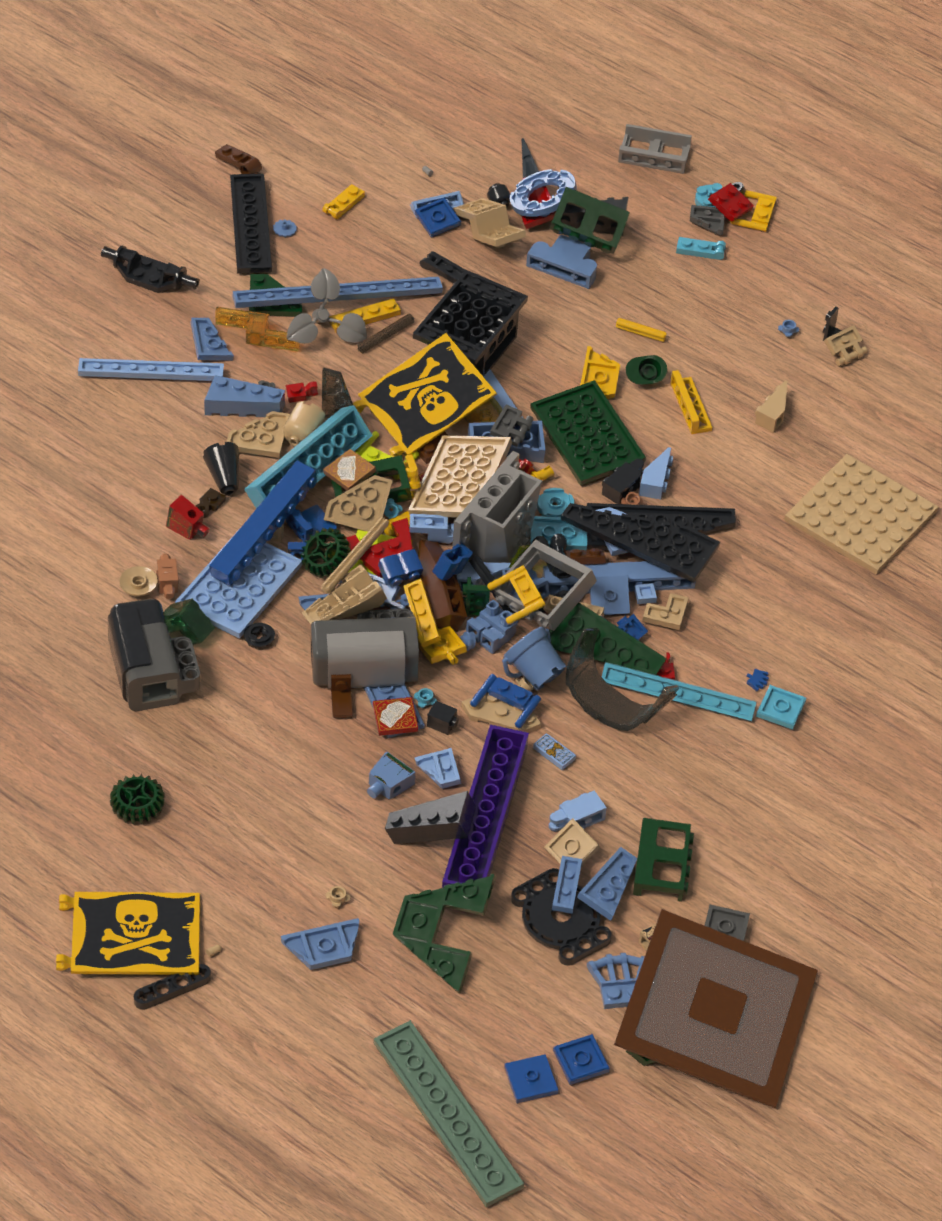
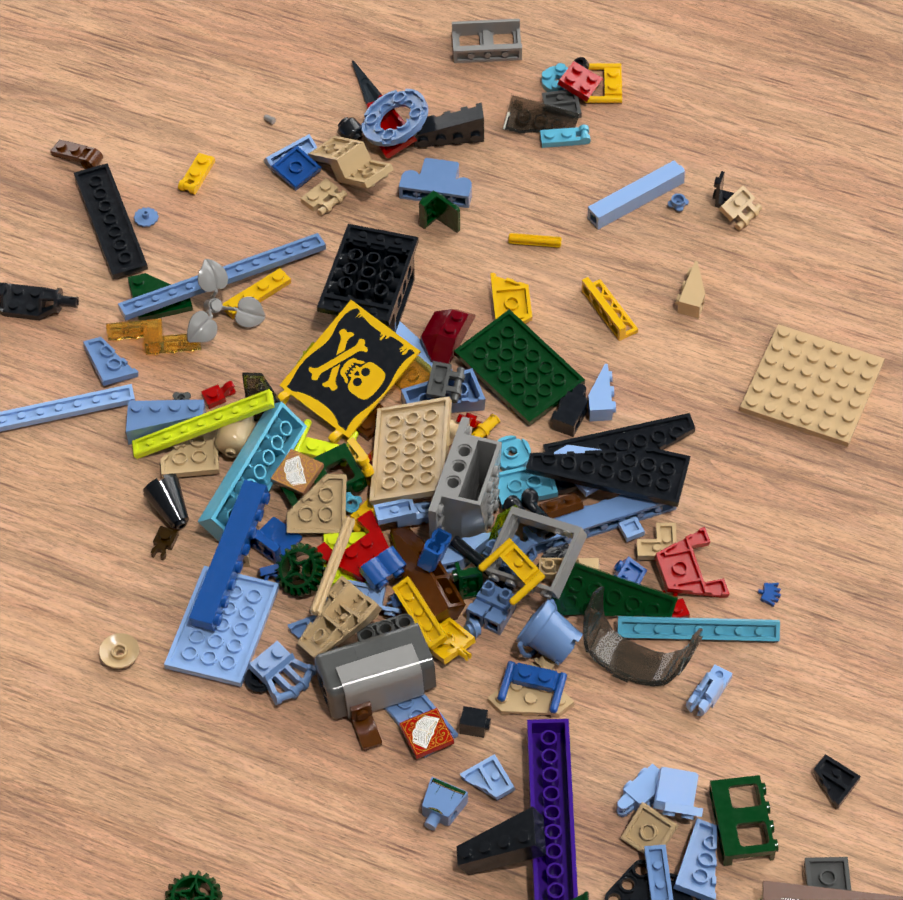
camera: 10 degrees left, 5 degrees up
(147, 661) = (156, 737): piece -> none
(167, 576) = (147, 637): nougat piece -> none
(186, 519) = (147, 569): red torso -> none
(189, 620) = (184, 682): clear green brick -> none
(276, 409) = (203, 424): none -> neon yellow tile
(278, 622) = (278, 660): none -> medium blue plate
(385, 333) = (283, 308): clear smoke axle -> none
(424, 697) = (449, 698): medium azure plate -> none
(442, 266) = (319, 221): black plate -> none
(455, 248) = (319, 196): none -> tan plate
(529, 386) = (446, 333): none -> dark red wedge
(554, 751) = (596, 728): light blue tile -> none
(556, 279) = (437, 207): none -> dark green bracket
(593, 209) = (453, 125): dark green window -> none
(608, 819) = (677, 793): none -> light blue bracket
(612, 594) = (601, 540): medium blue plate -> none
(632, 496) = (585, 425): nougat plate -> none
(646, 369) = (556, 284): dark green piece -> none
(669, 744) = (709, 690): none -> light blue plate
(674, 222) = (531, 116): none -> clear smoke wedge
(679, 638) = (681, 570): none -> wing
(750, 312) = (636, 194): none -> light blue brick
(762, 848) = (835, 779): none -> black wing
(781, 707) = (803, 618): medium azure plate -> none

